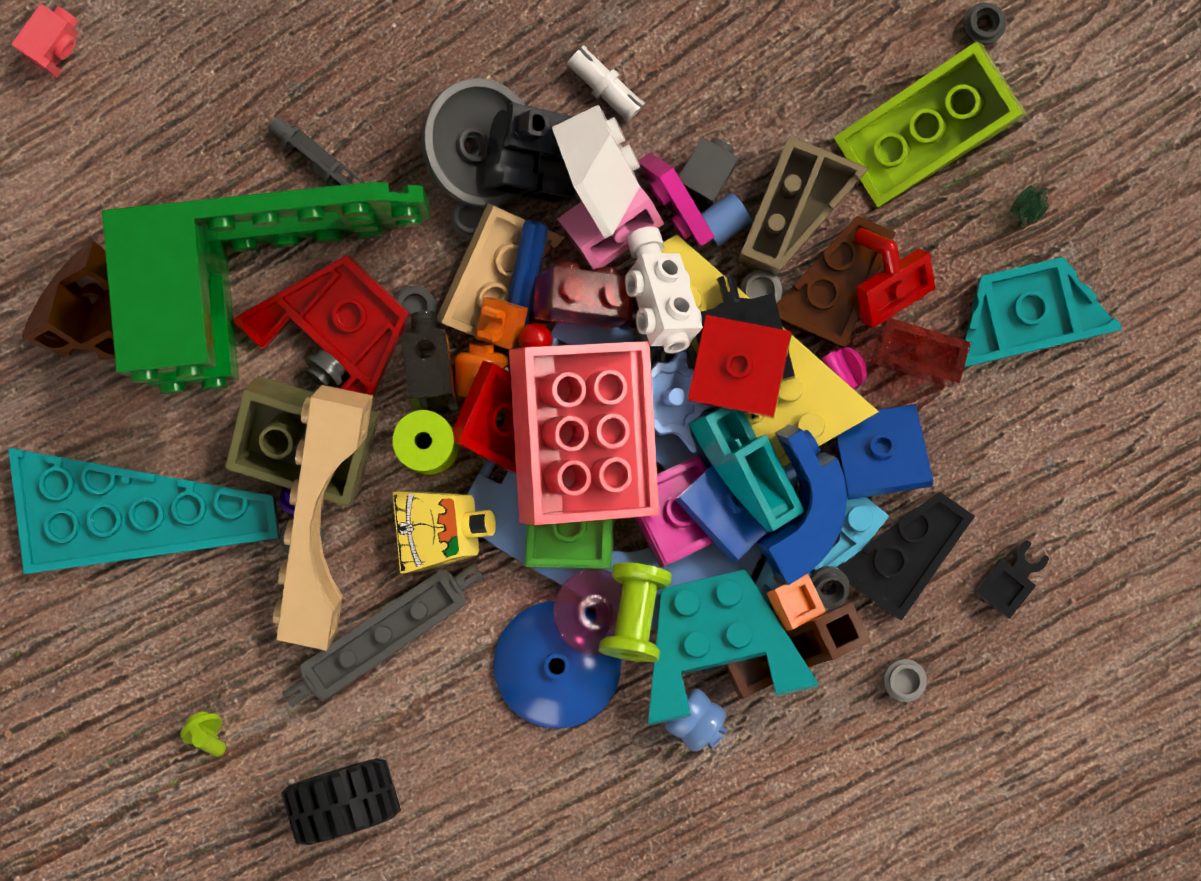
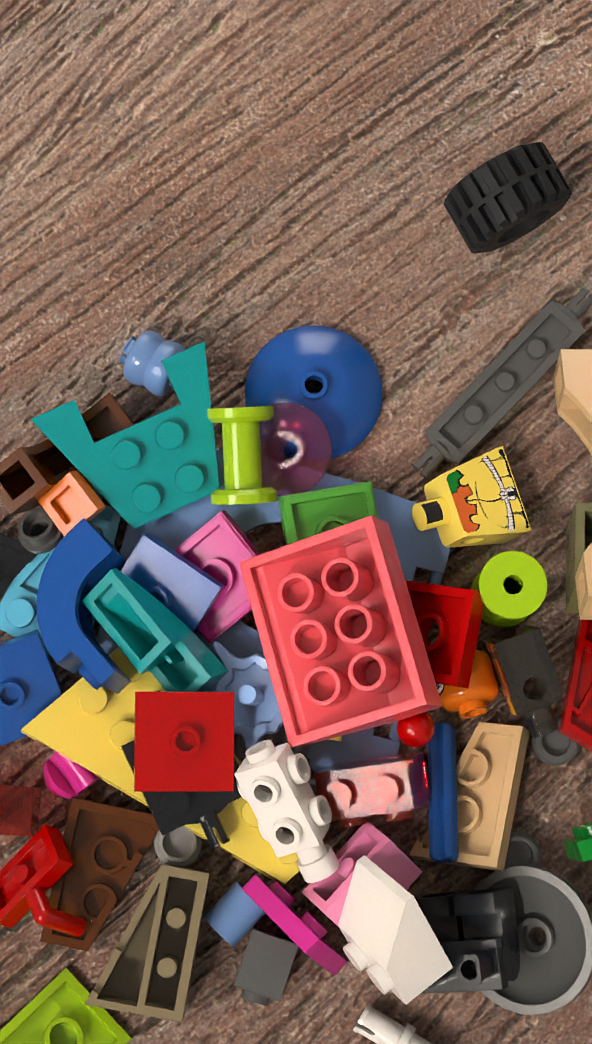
camera: 170 degrees right, 5 degrees down
(501, 322) = (457, 740): orange tile -> none

